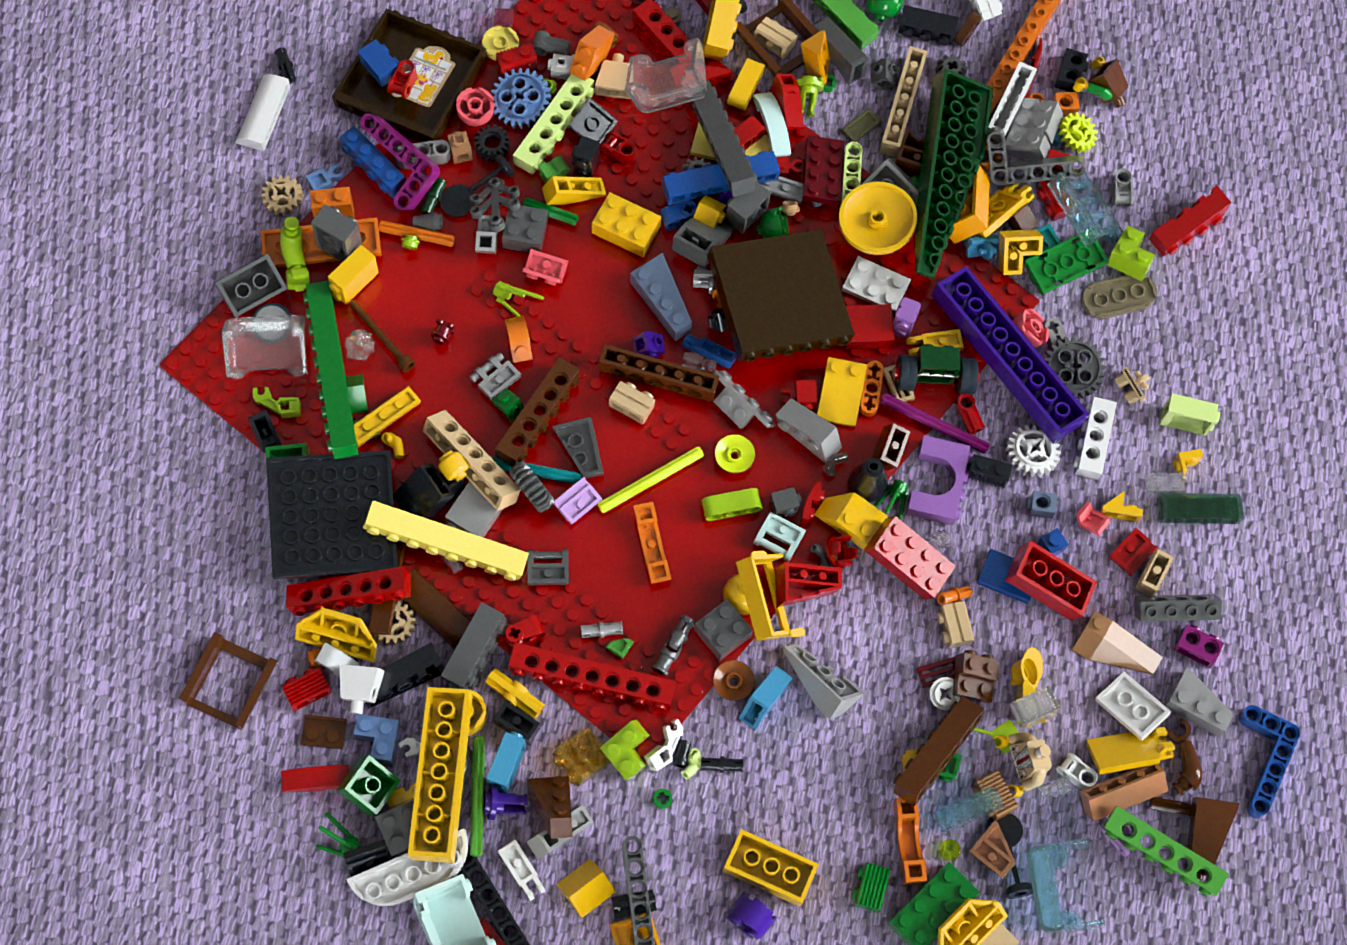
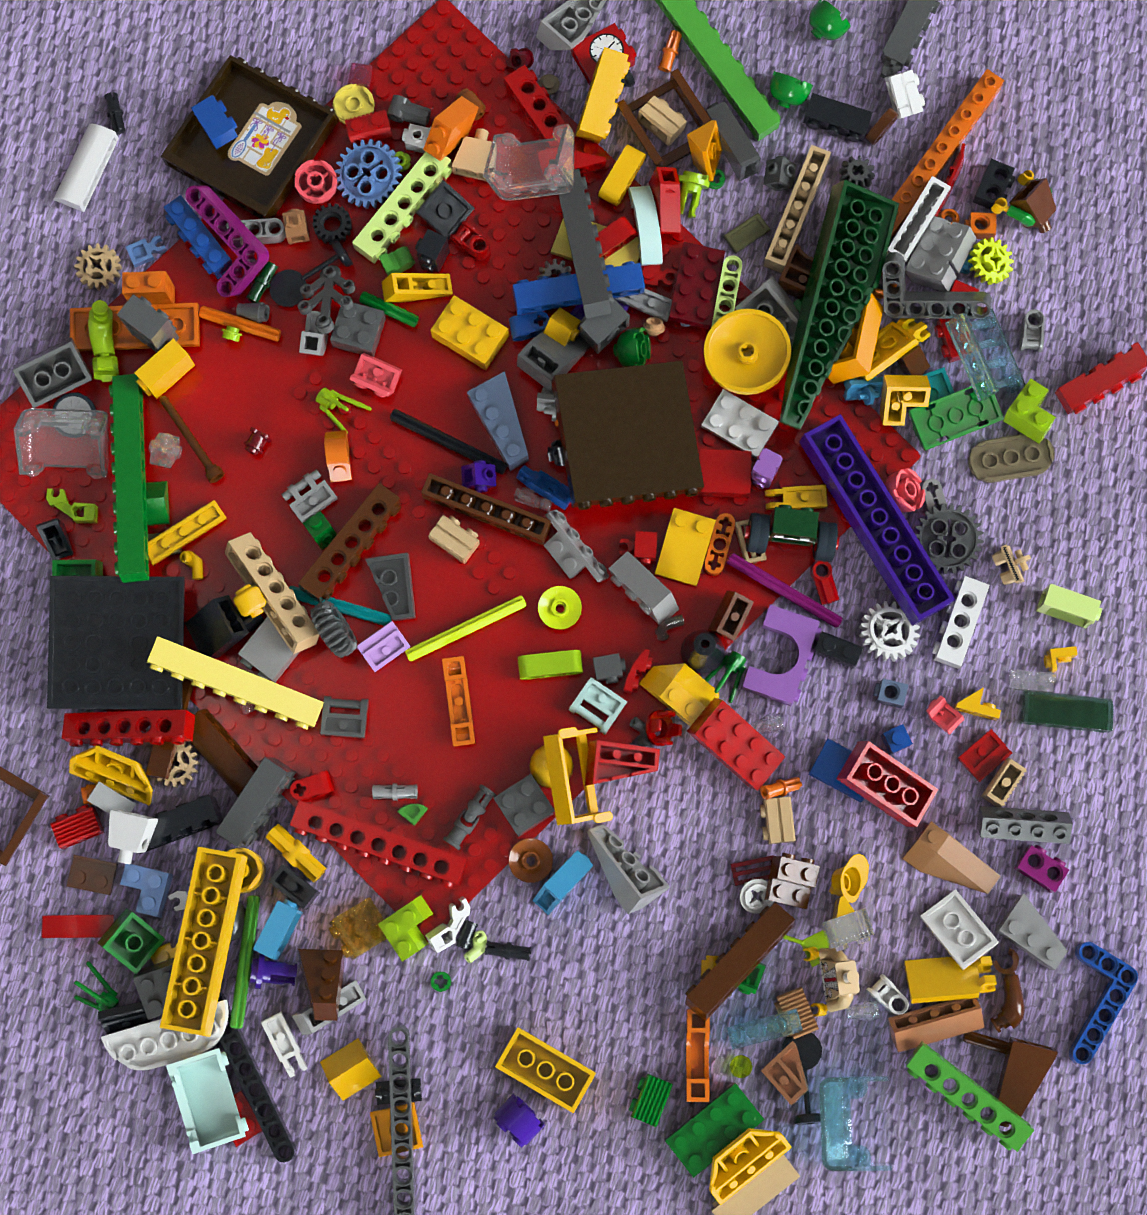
camera: 15 degrees right, 10 degrees up
(402, 82) = (238, 148): red piece -> none
(612, 318) = (446, 440): none -> black axle

